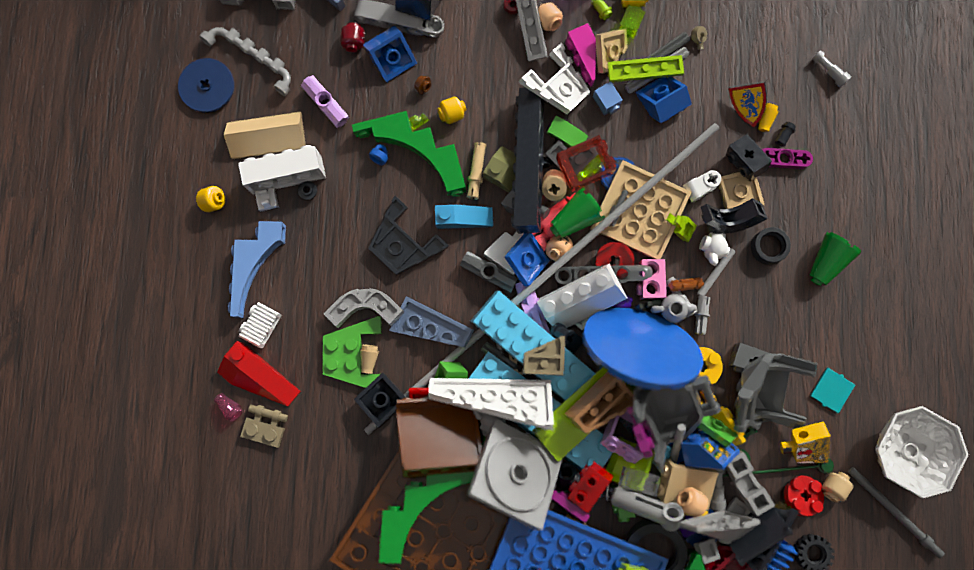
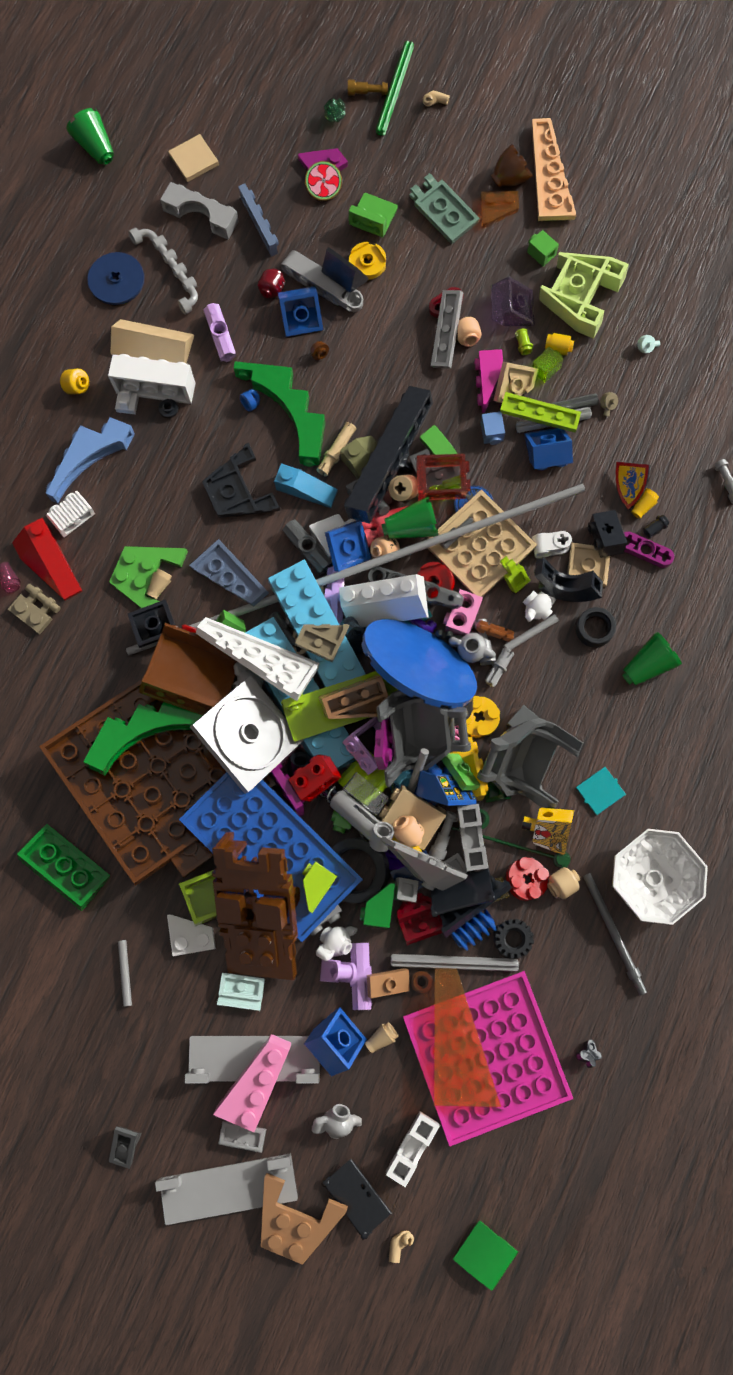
camera: 25 degrees right, 5 degrees down
(363, 299) = (174, 526): light grey plate -> none
(416, 121) = (300, 383): clear neon green tile -> none
(451, 110) = (336, 383): yellow head -> none
(564, 88) = (453, 402): white wing -> none

